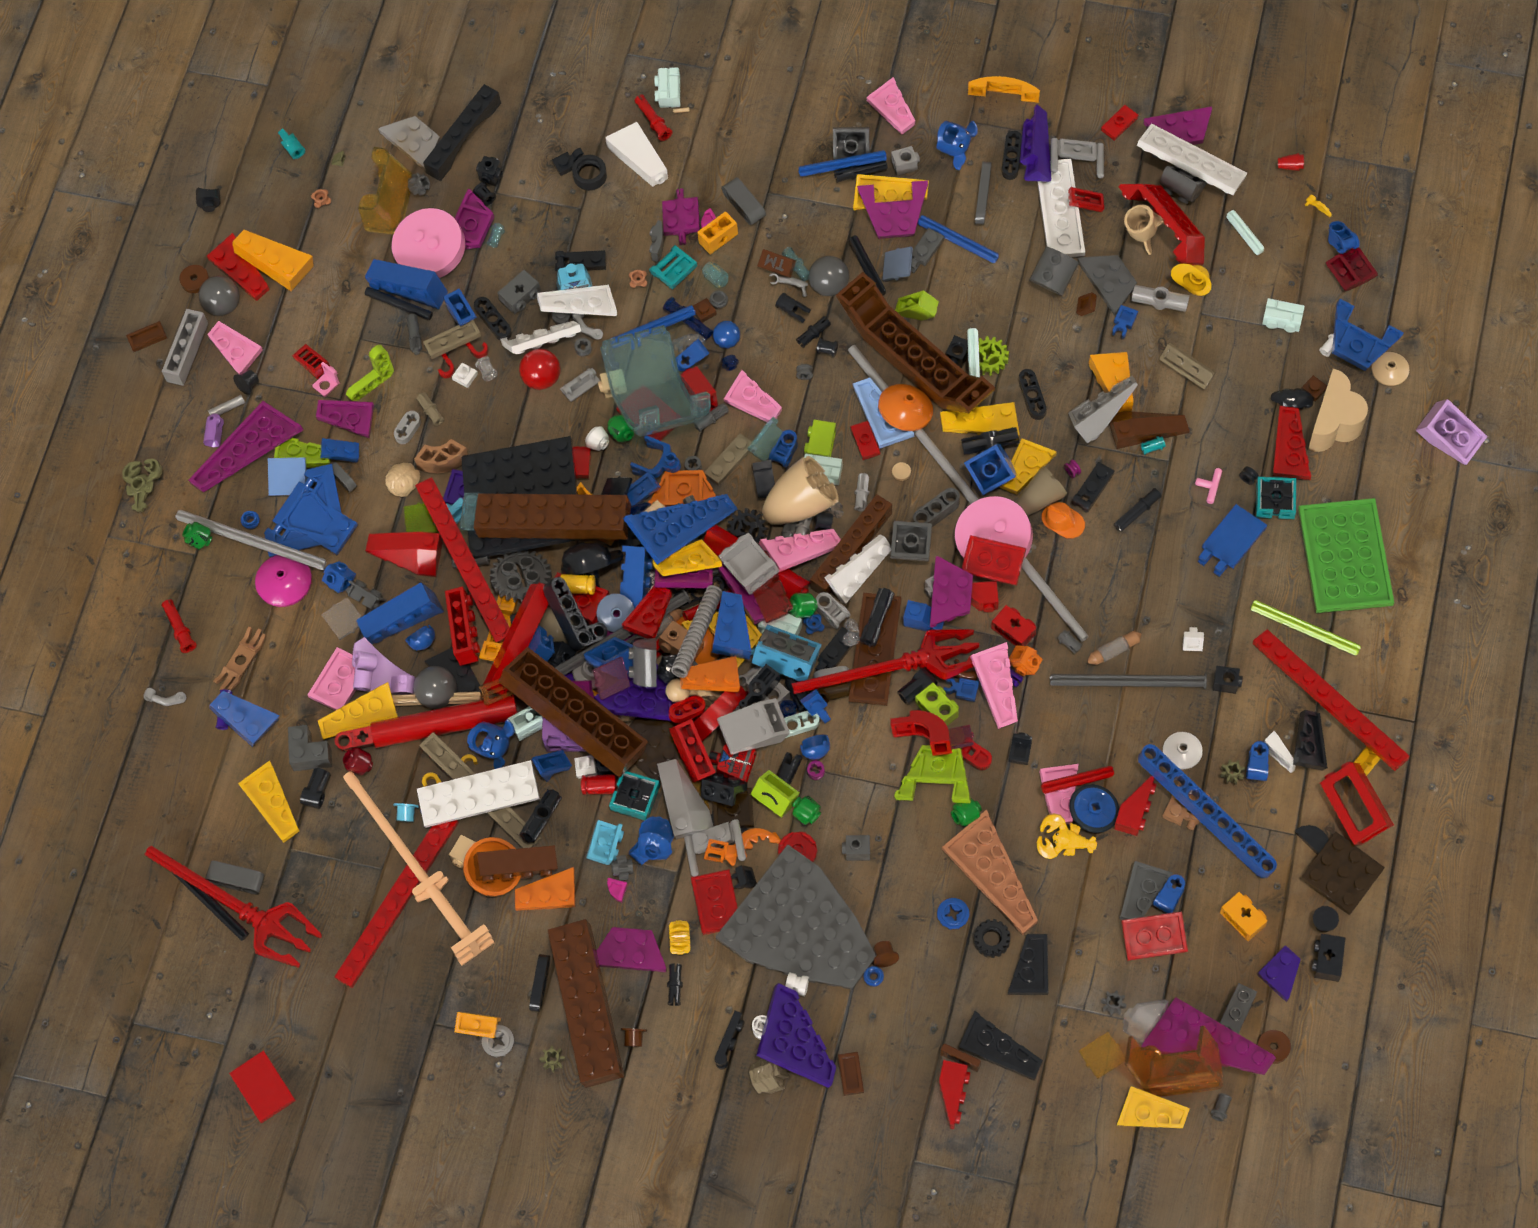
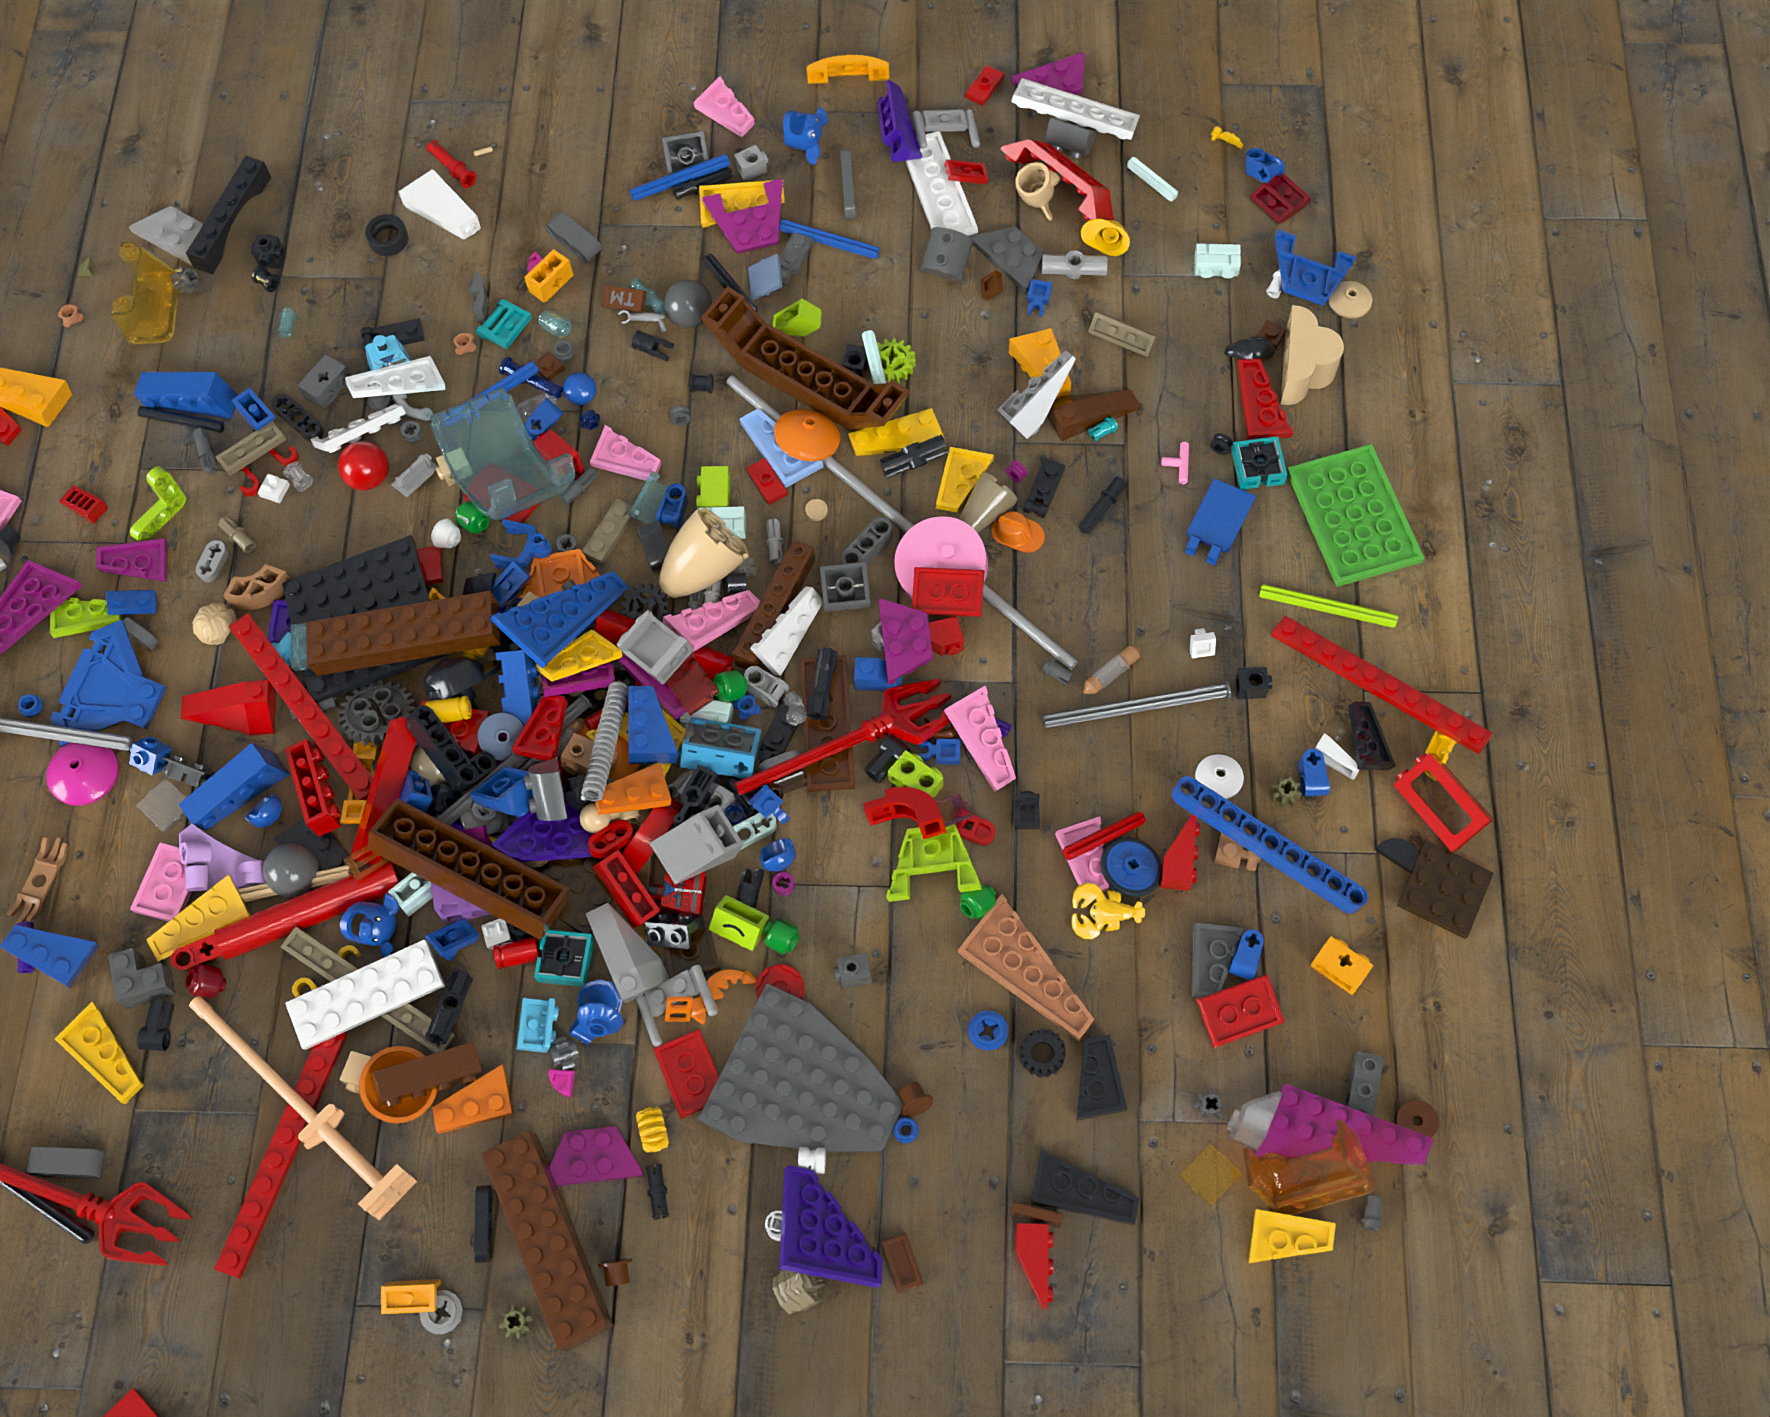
camera: 15 degrees left, 0 degrees up
(285, 475) = (66, 642): medium blue tile -> none
(291, 144) = (27, 261): teal hinge -> none
(330, 376) = (108, 518): bright pink bracket -> none
(405, 812) = (276, 1035): medium azure piece -> none
(418, 519) = (241, 667): clear neon green piece -> none
(429, 241) = (207, 340): bright pink brick -> none
(474, 220) = (252, 316): magenta wing -> none
(565, 161) = (356, 228): black plate -> none
(611, 678) = (508, 817): clear pink piece -> none
(668, 87) = (463, 127): light aqua brick -> none
(681, 216) = (503, 266): magenta plate -> none
(729, 1042) = (739, 1251): black plate -> none
(745, 876) = (721, 1034): black tile -> none
(813, 331) = (681, 368): black pin -> none
(991, 468) = (922, 486): blue brick -> none
(1013, 161) = (868, 146): black beam -> none
(1018, 635) = (976, 667): red brick -> none
(1025, 660) = (1010, 703): orange brick -> none
(1034, 386) = (951, 405): black beam -> none
(1281, 972) = (1403, 1026): dark purple wing -> none
(1291, 162) = (1186, 96): red cone -> none
(1325, 918) = (1441, 949): black piece -> none
(1333, 947) = (1461, 983): black brick -> none
(1451, 431) = (1437, 355): lavender slope -> none

